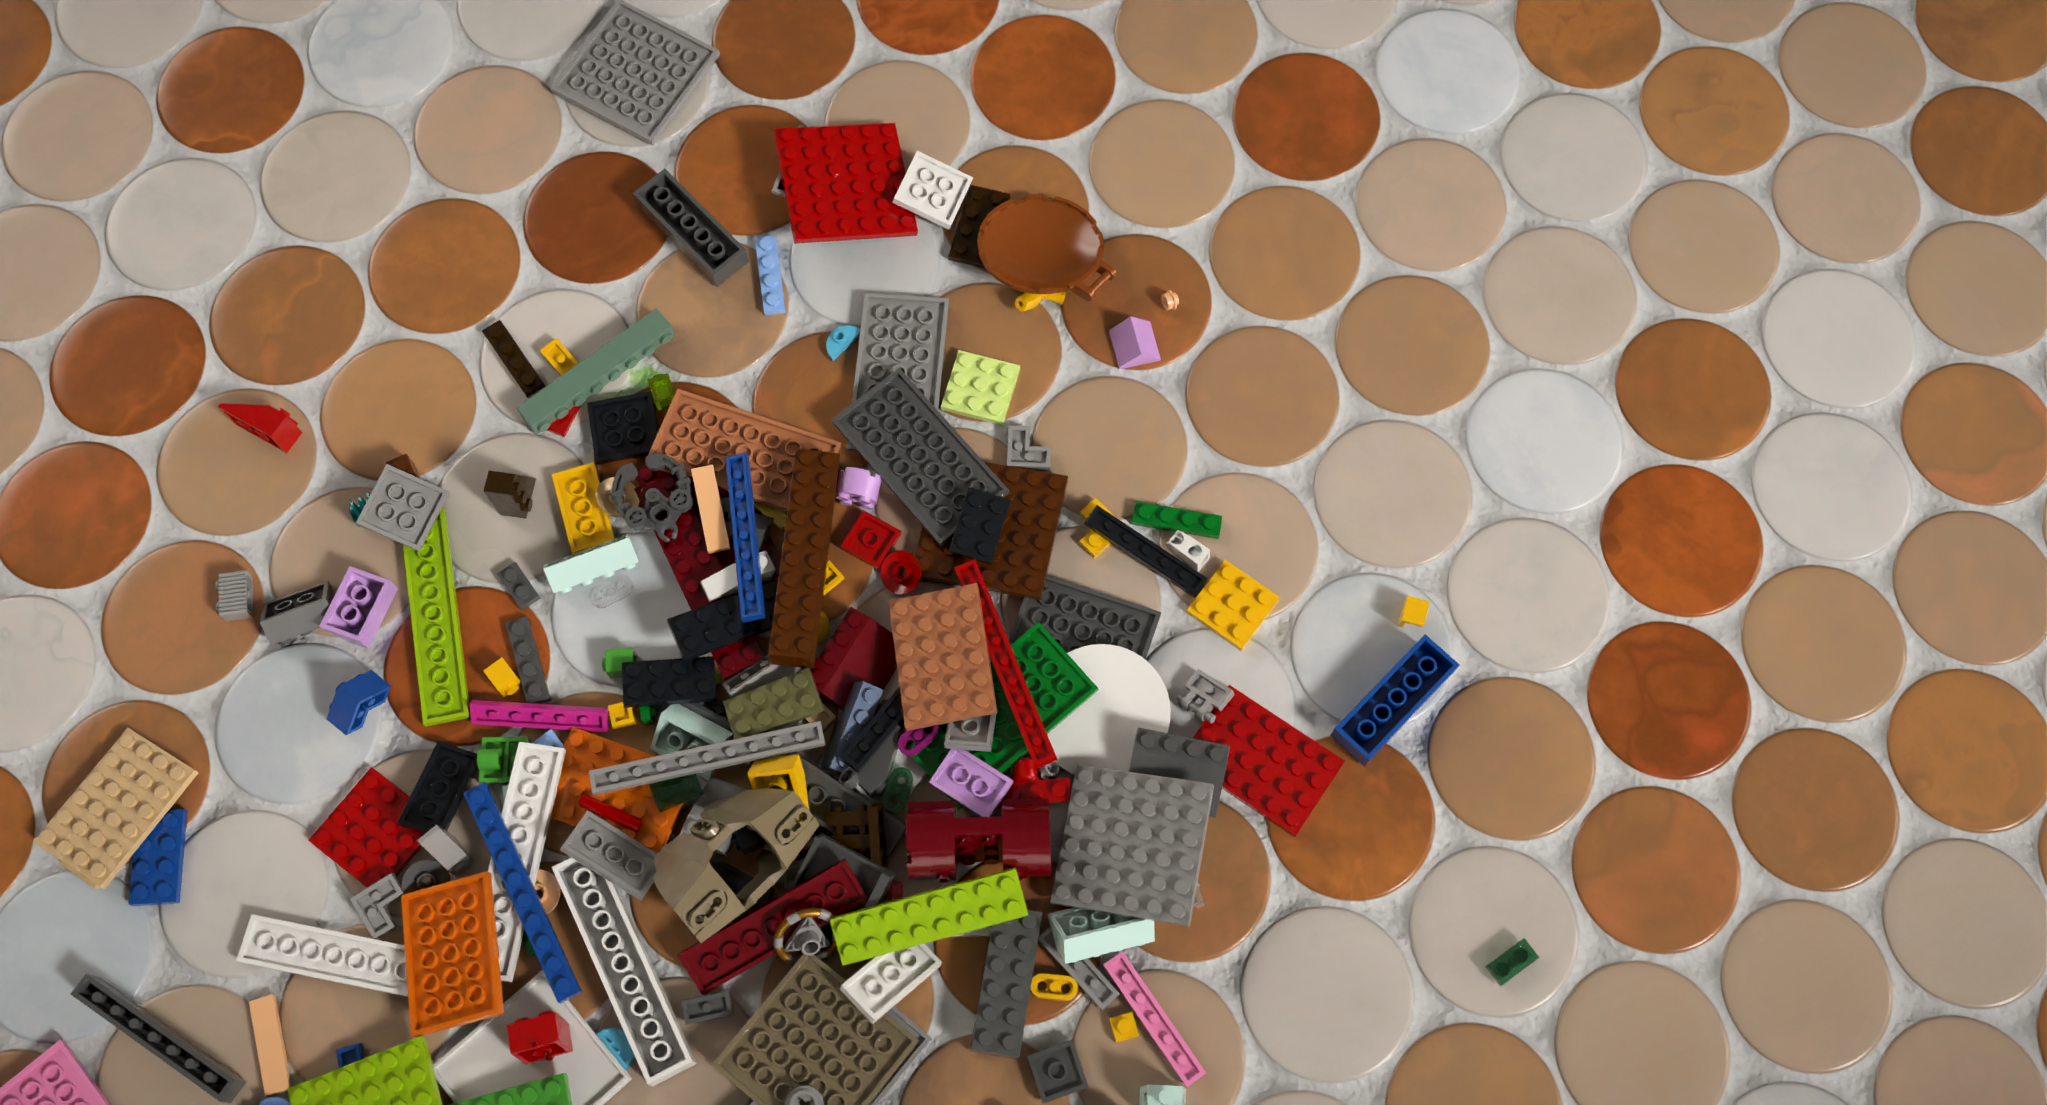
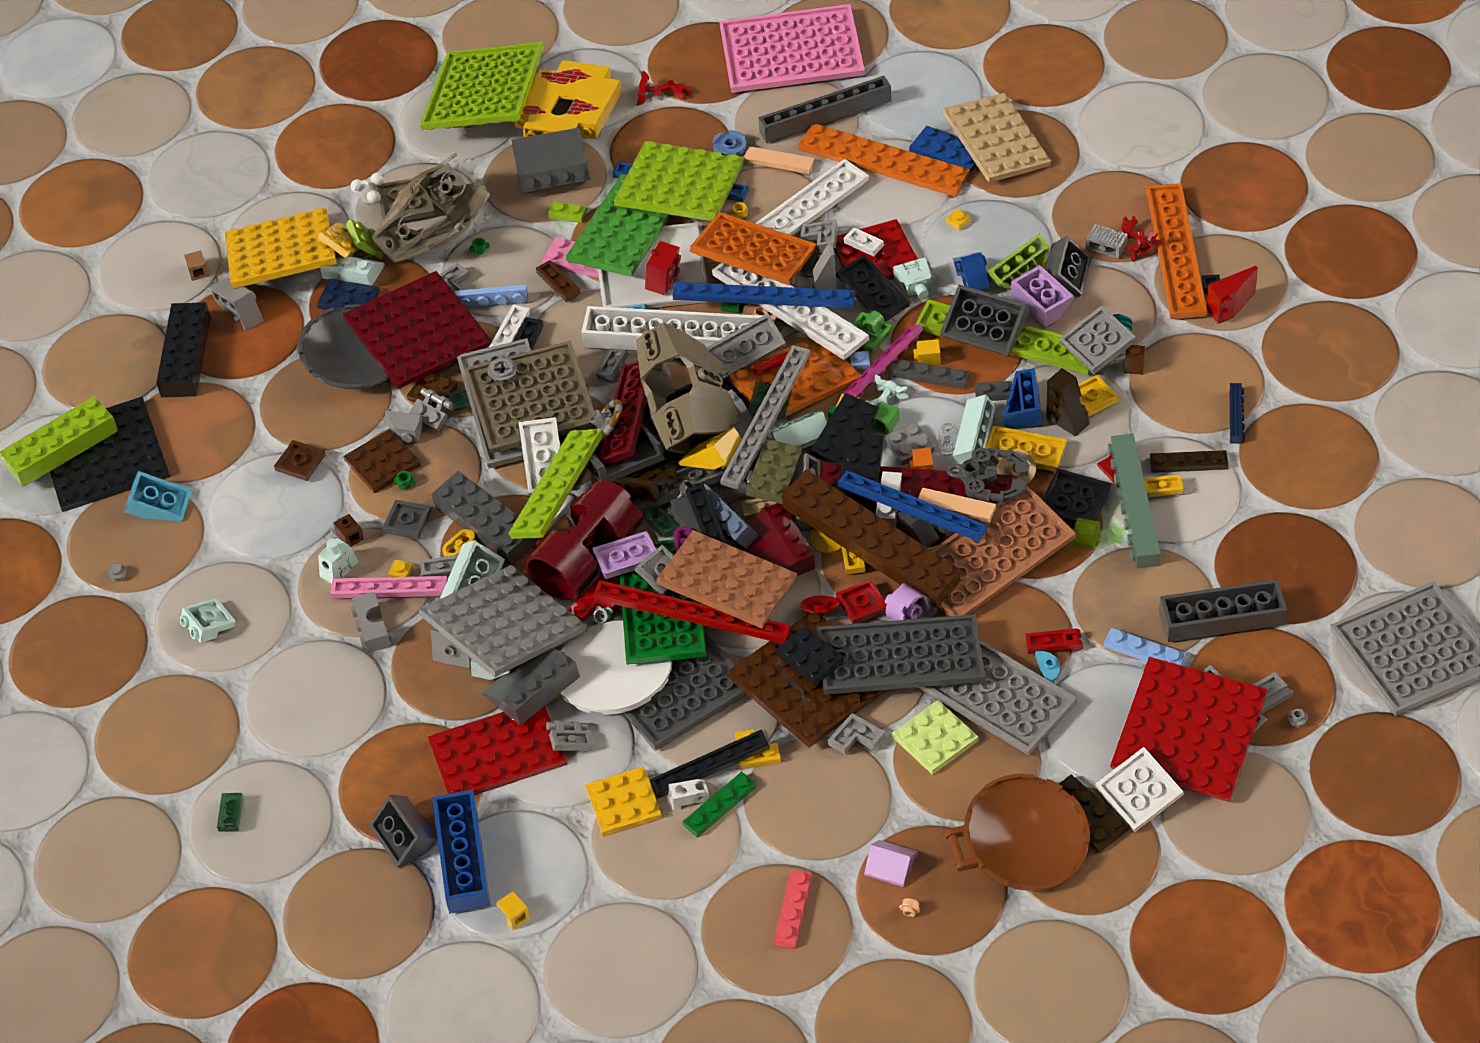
camera: 130 degrees right, 20 degrees down
(210, 924) = (884, 159): none -> orange plate
(211, 523) = (1177, 254): none -> orange plate
(226, 551) = (1142, 245): none -> red piece
(249, 461) = (1208, 279): none -> black plate
(273, 775) = (958, 219): none -> yellow plate
(319, 659) = (1021, 261): none -> lime wedge
(372, 842) = (863, 241): none -> white plate
(376, 1032) = (739, 210): none -> yellow plate
(396, 759) = (914, 278): none -> light aqua torso
(421, 350) = (1235, 412): none -> dark blue piece
(431, 638) = (985, 320): none -> dark grey slope
(468, 487) = (1096, 395): none -> yellow plate
(521, 539) = (1023, 404): none -> blue wedge
(577, 685) = (890, 389): none -> light aqua piece
(638, 624) = (905, 439): none -> light grey plate
(662, 590) = (921, 459): none -> orange brick
(757, 154) = (1277, 691): none -> light grey plate
(769, 126) = (1297, 721): none -> light grey plate
(810, 350) = (1054, 640): none -> red plate
(1199, 1019) = (374, 634): none -> light grey arch
(1236, 391) = (792, 909): none -> coral plate
(1410, 775) = (402, 830): none -> dark grey slope

